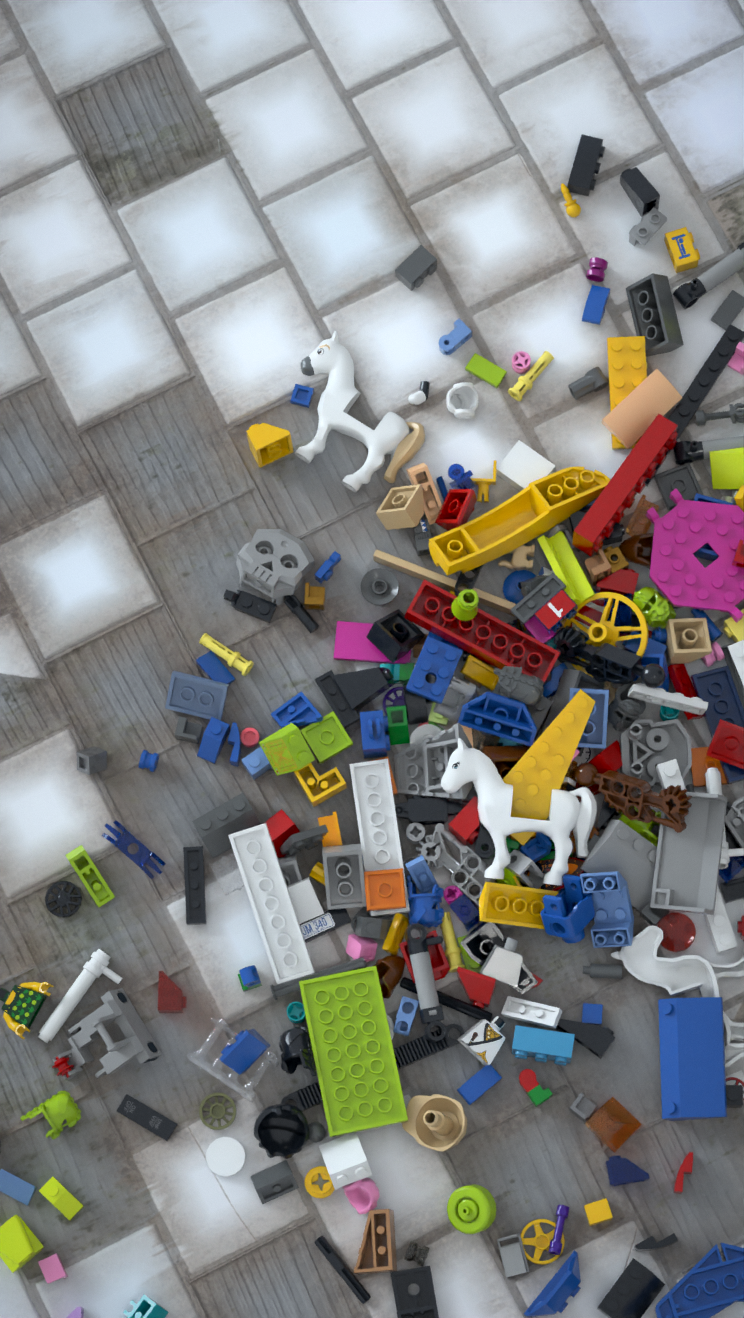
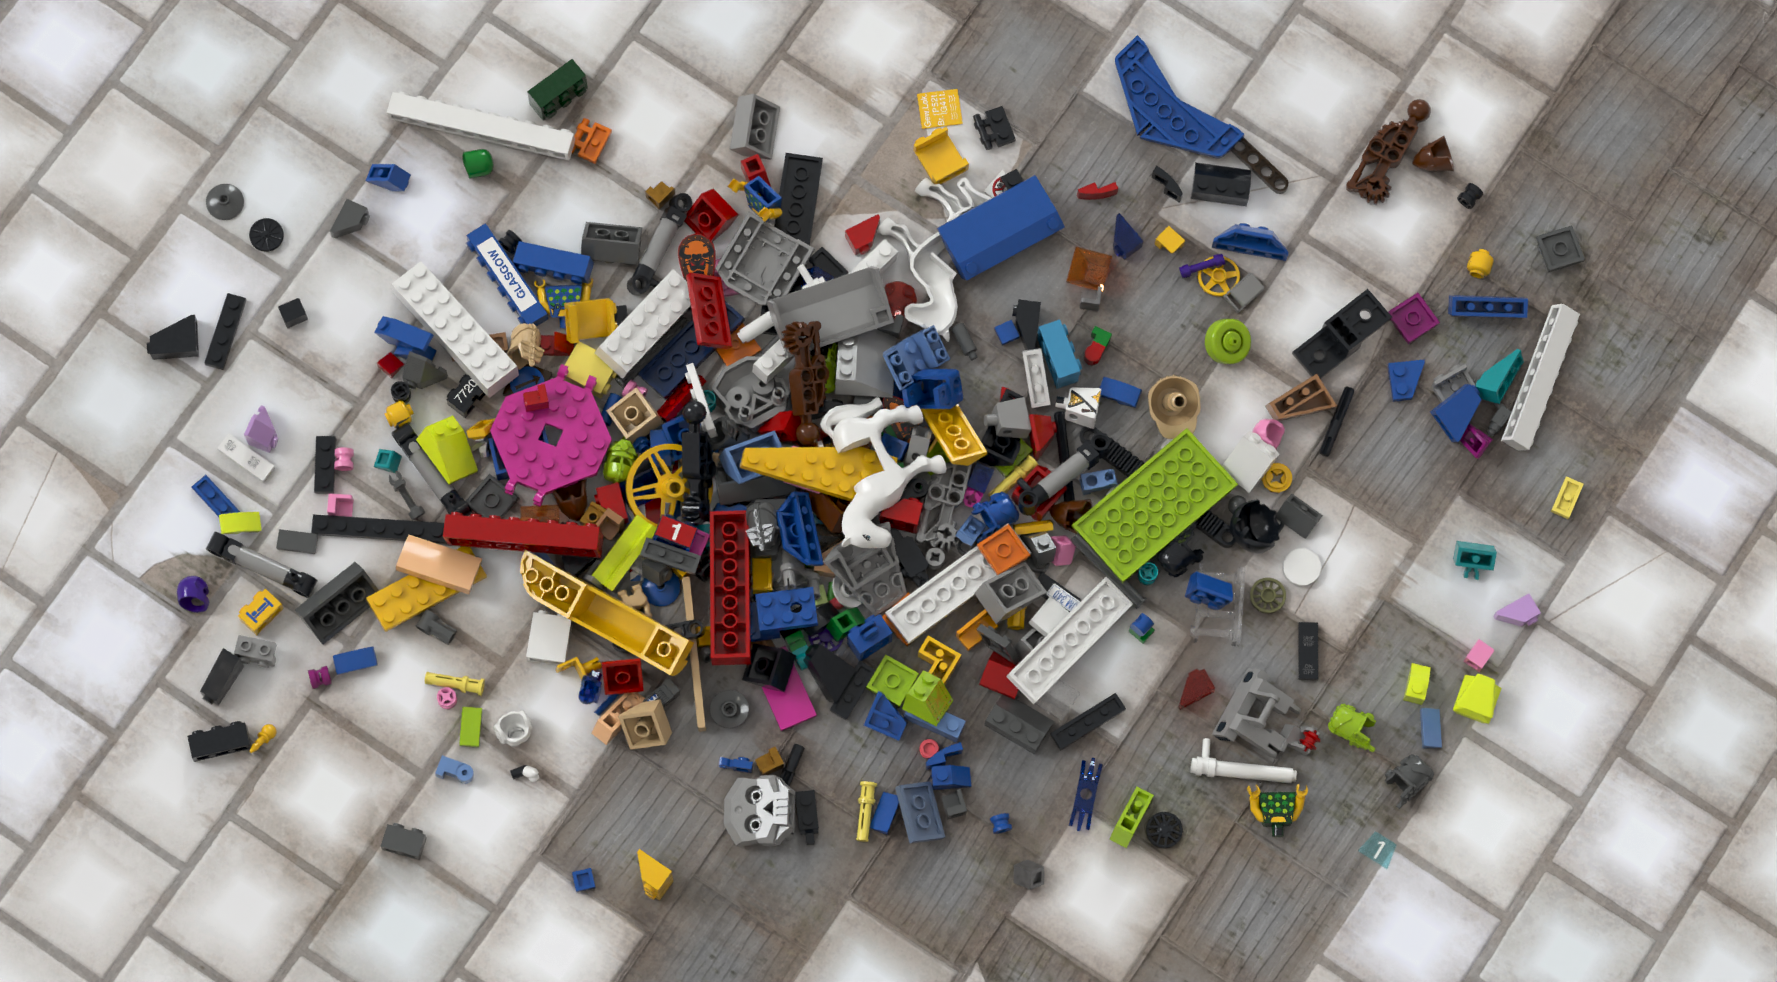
camera: 130 degrees left, 0 degrees up
(389, 437) = (579, 844): white animal -> none
(420, 1257) = (1289, 367): clear smoke wheel -> none
(463, 610) = (716, 607): lime plant -> none
(729, 199) = (191, 588): none -> dark purple helmet

